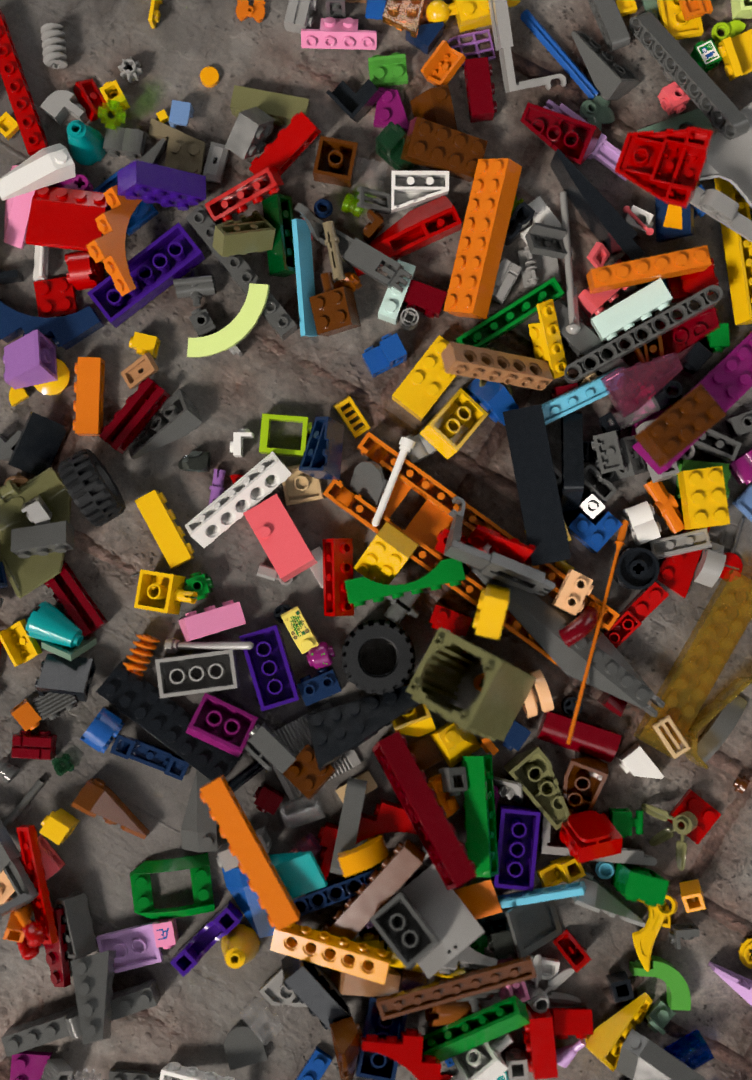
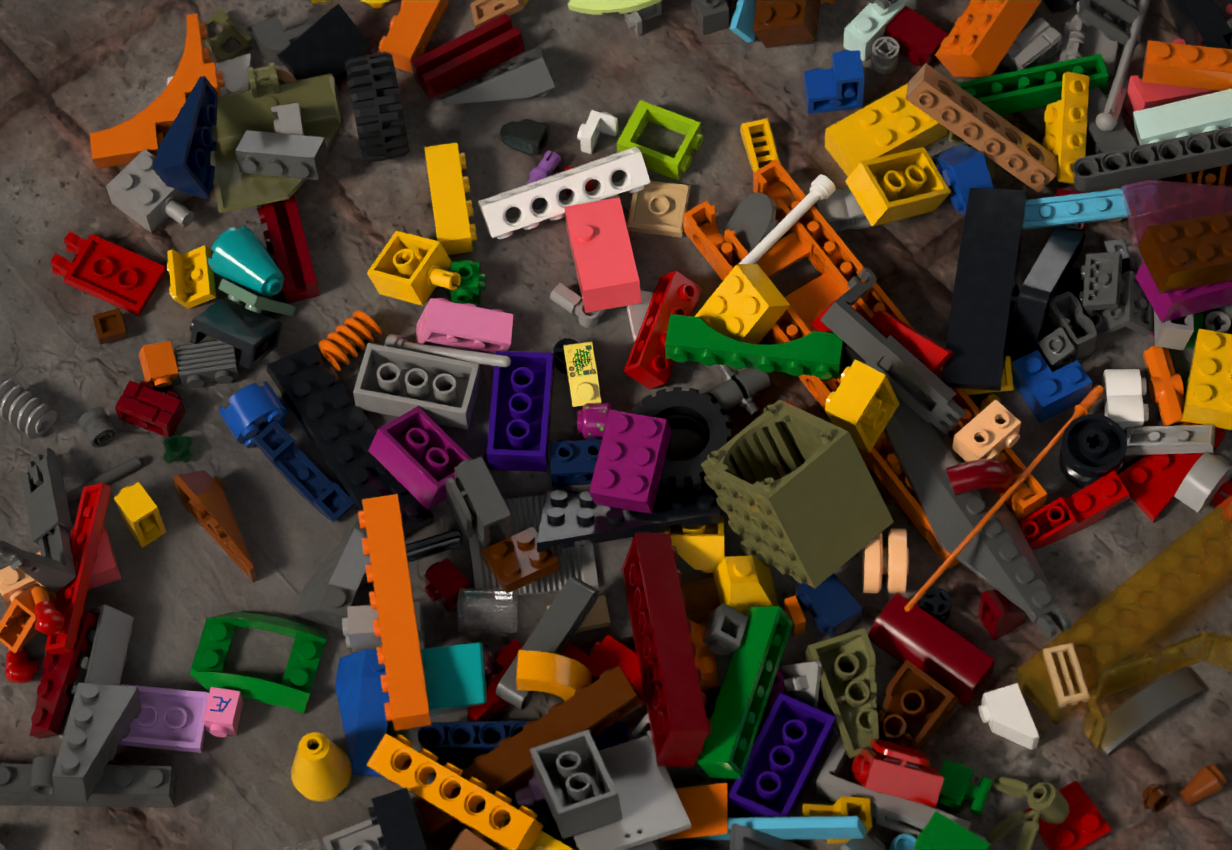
camera: 25 degrees right, 25 degrees down
(205, 938) = (249, 749): dark purple arch -> none
(324, 449) = (705, 166): dark blue wedge -> none
(357, 694) = (630, 461): none -> magenta brick

